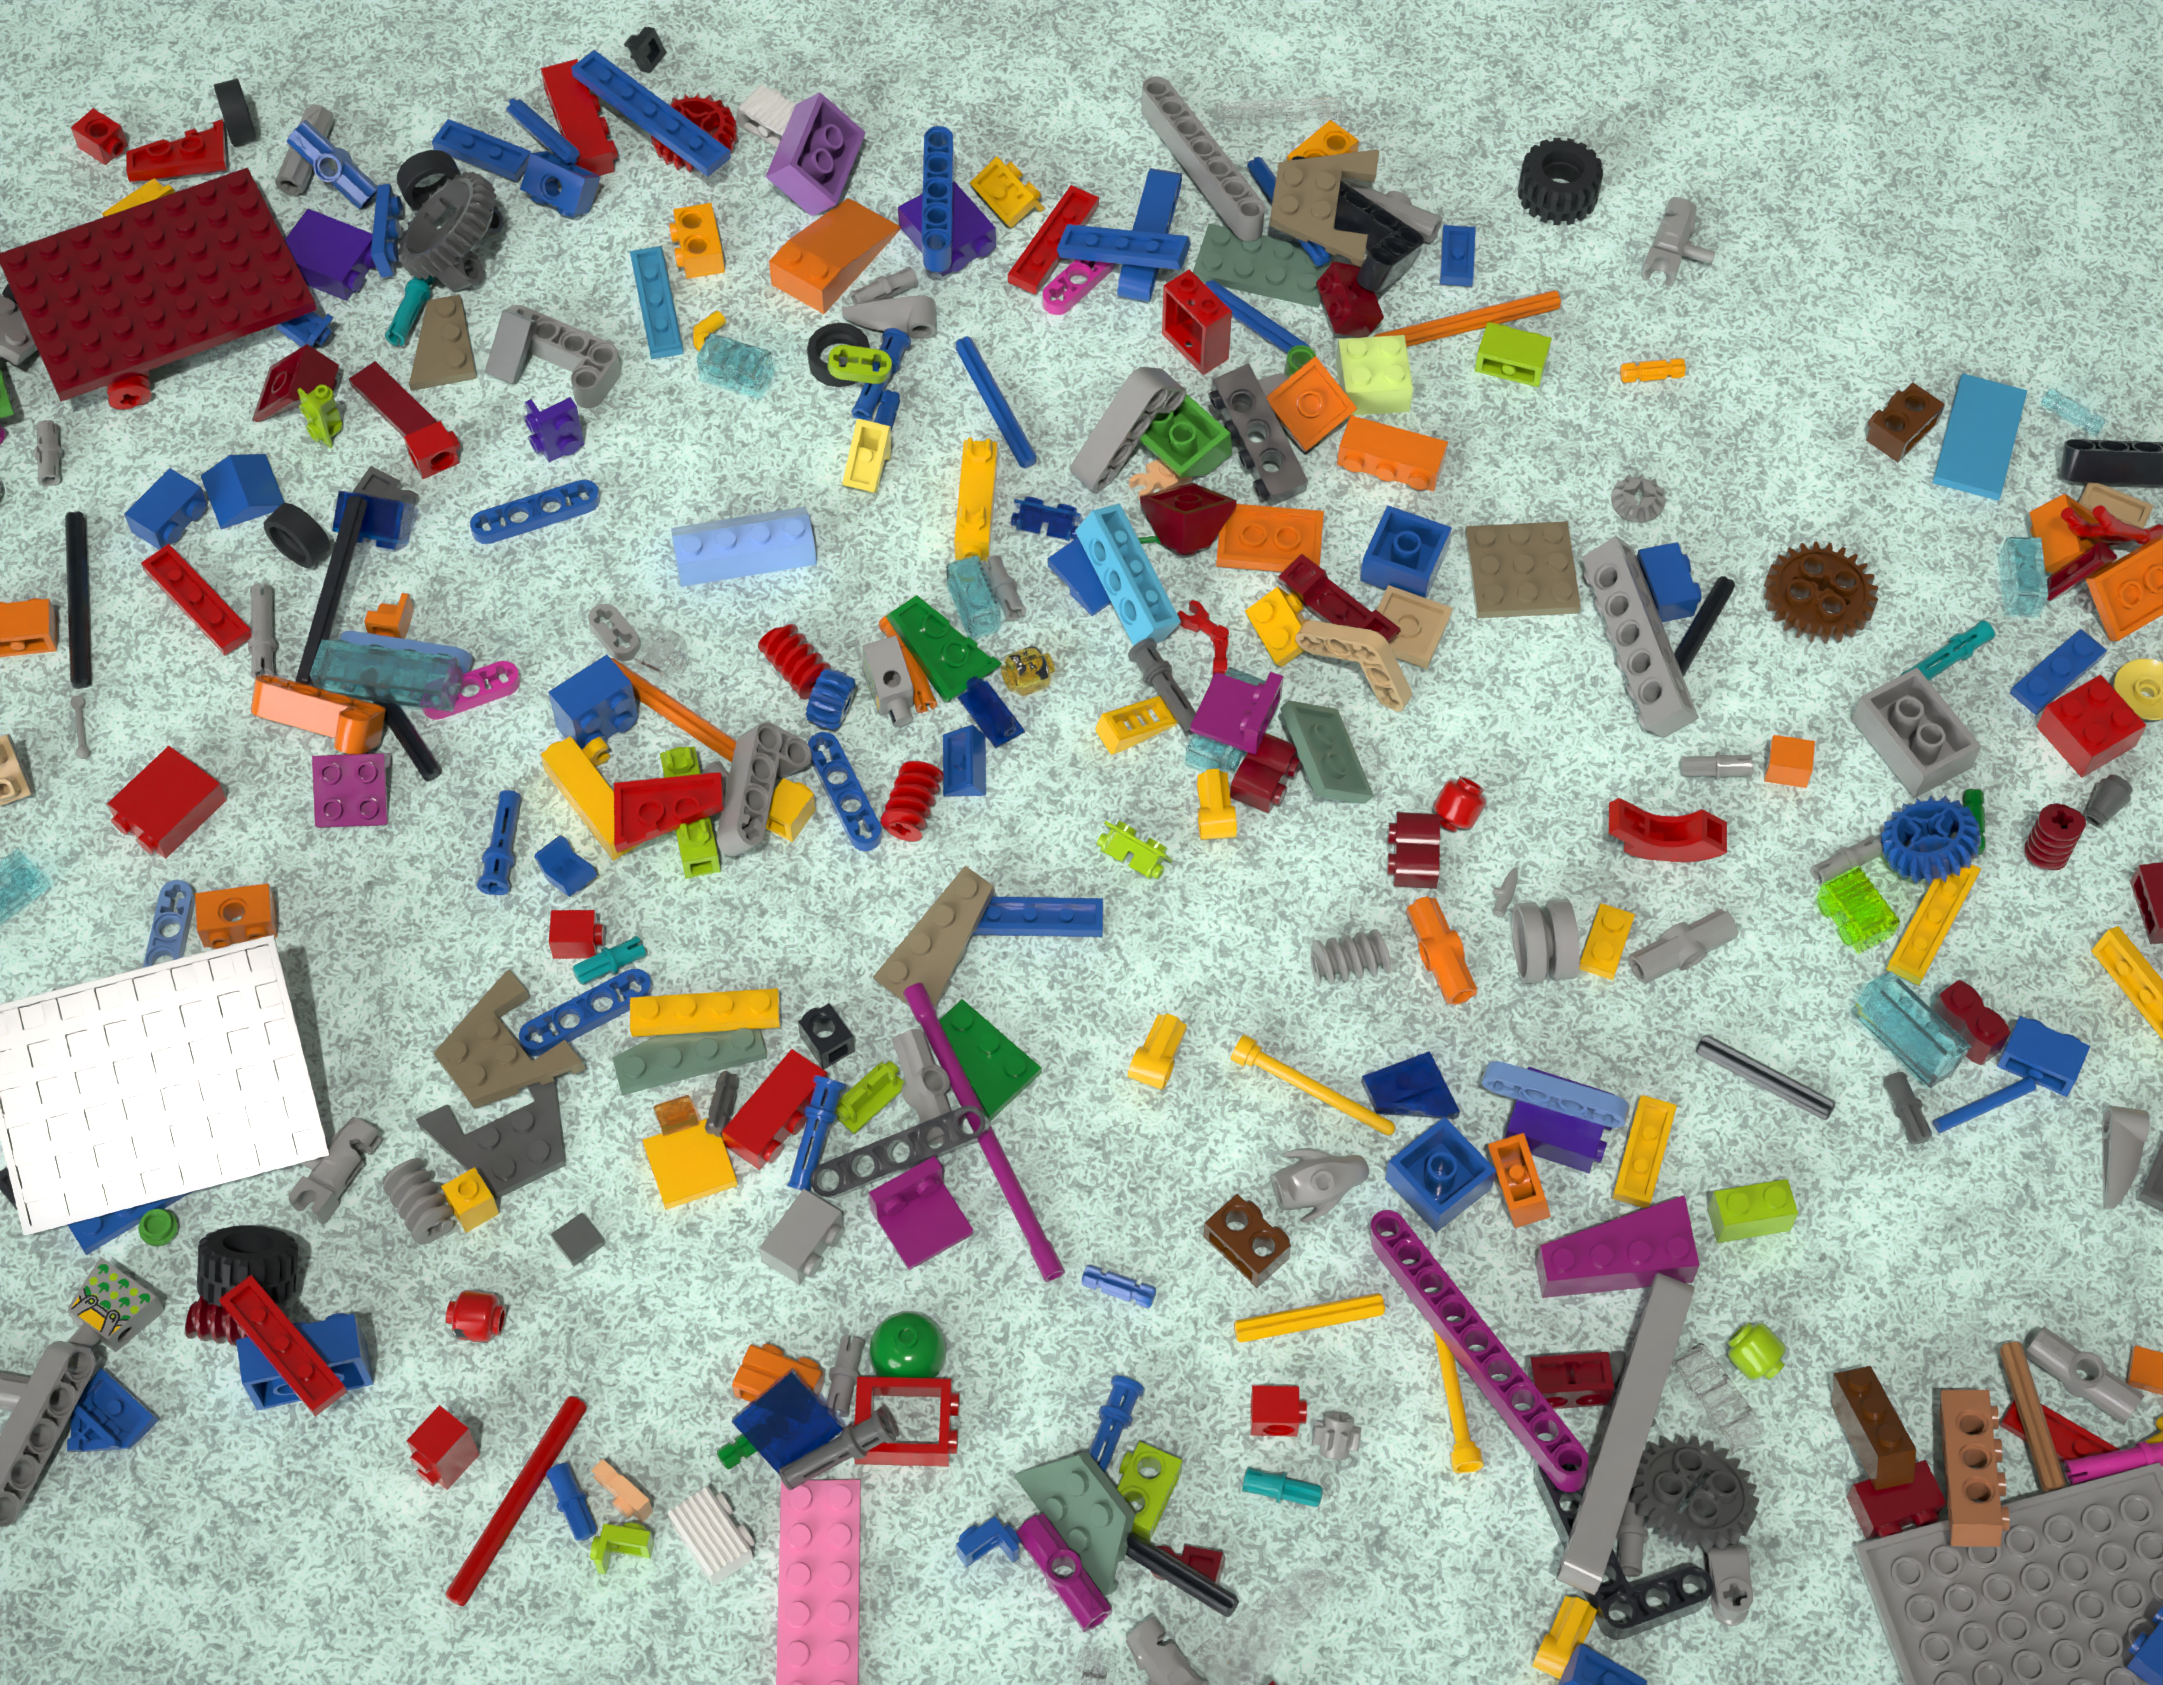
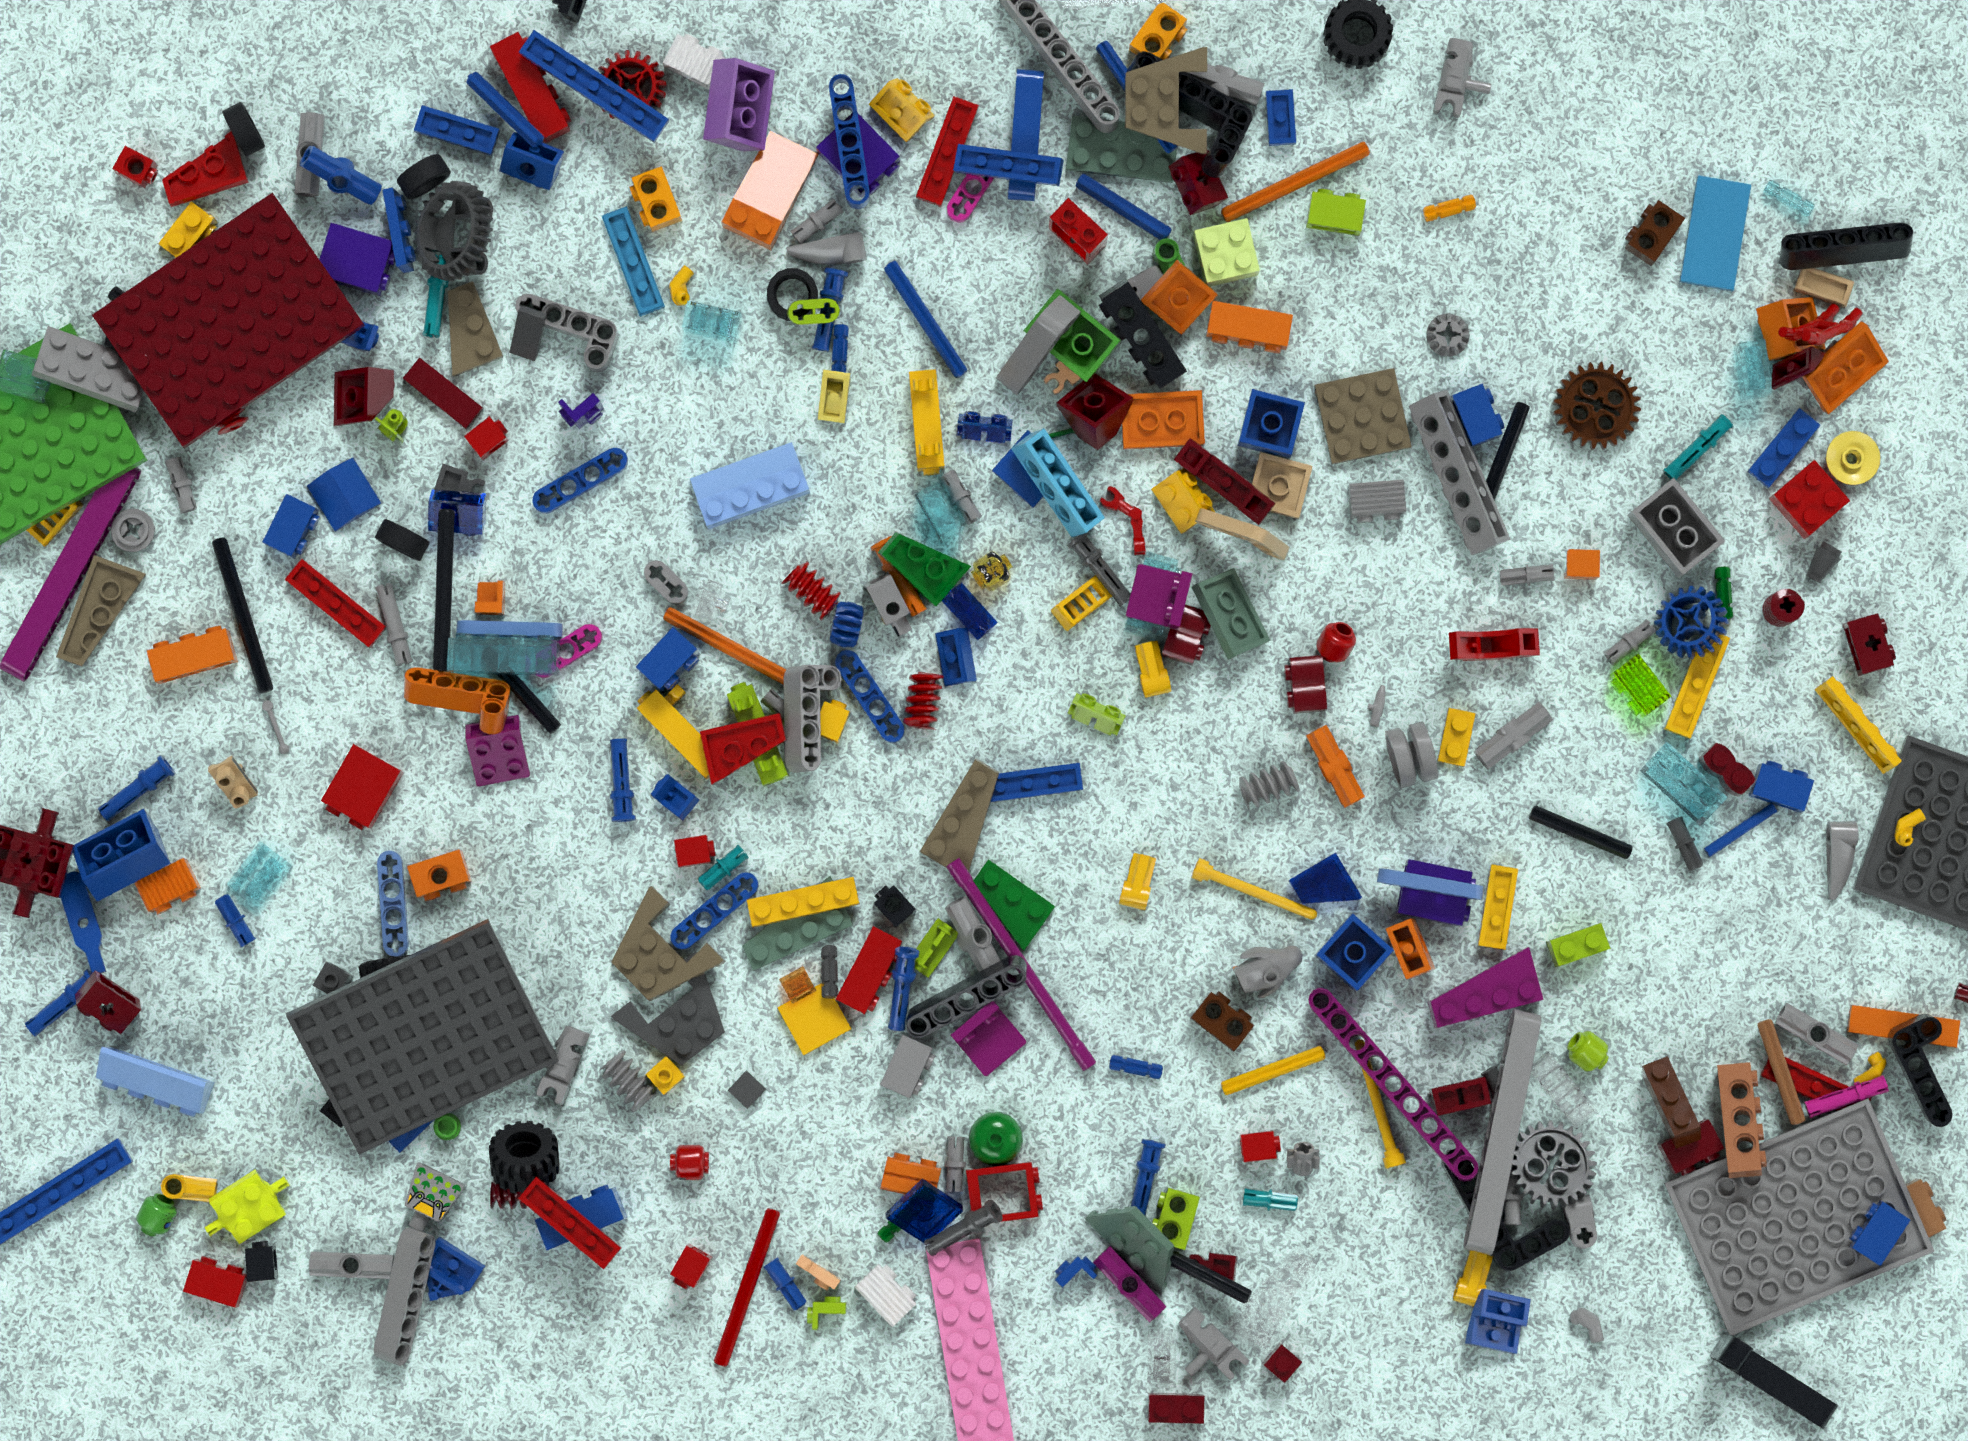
camera: 10 degrees left, 25 degrees up
(1530, 656) = (1377, 500): none -> light grey brick

